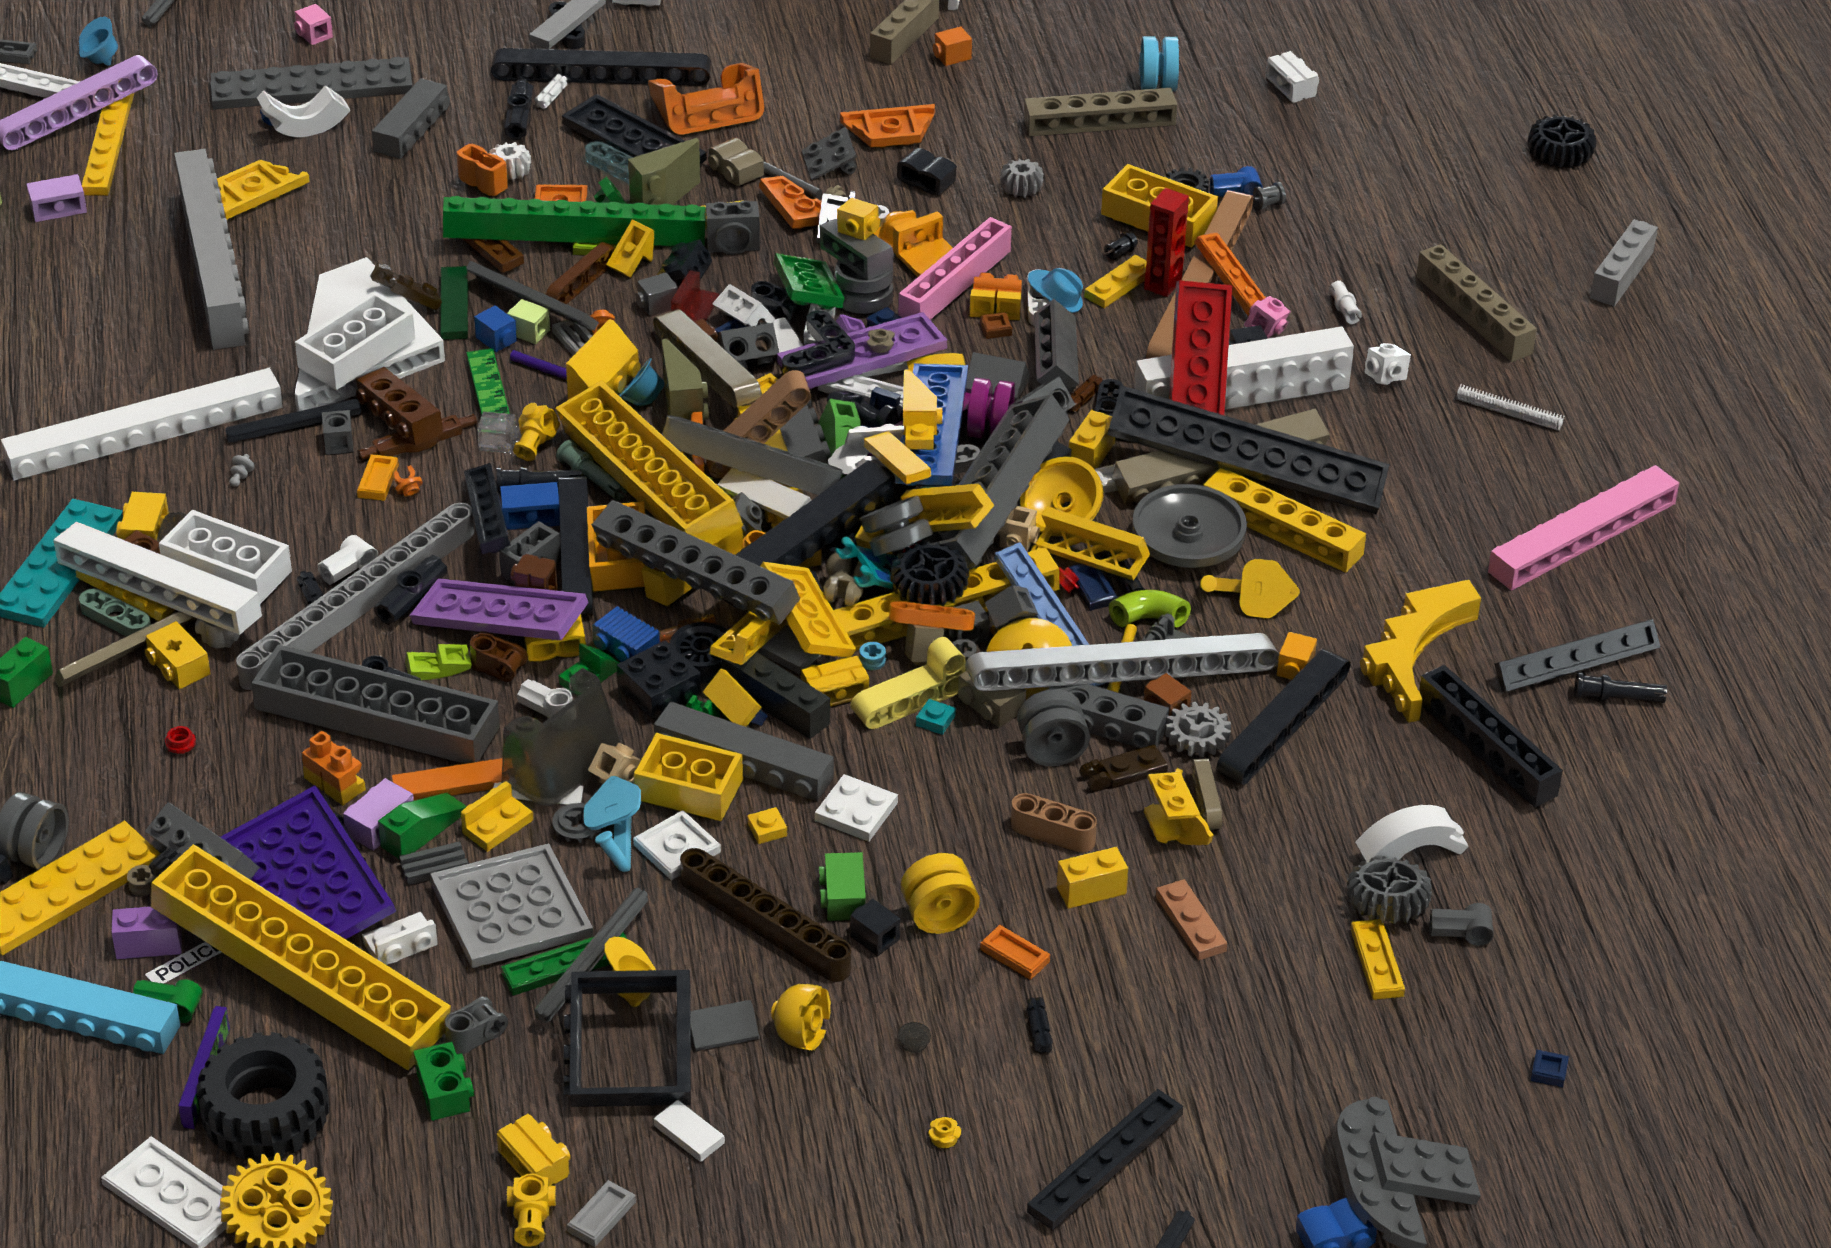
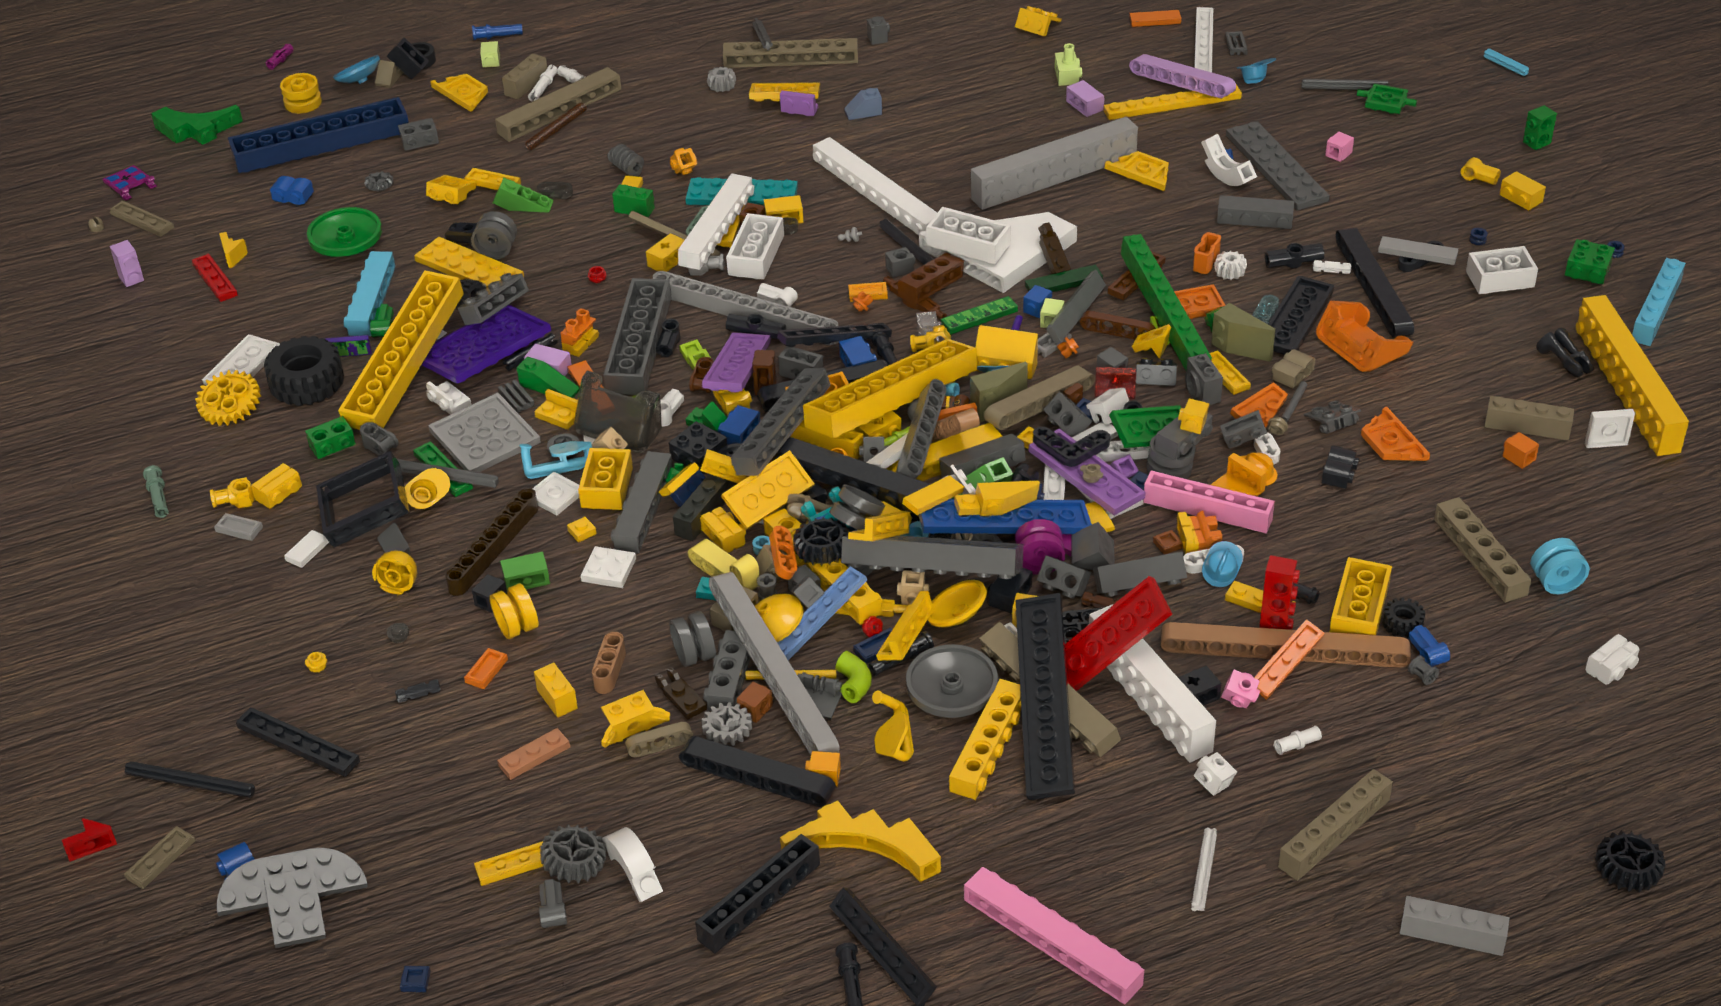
camera: 80 degrees right, 0 degrees up
(309, 586) = (749, 288): black axle -> none
(1021, 178) = (1360, 519): light grey gear -> none

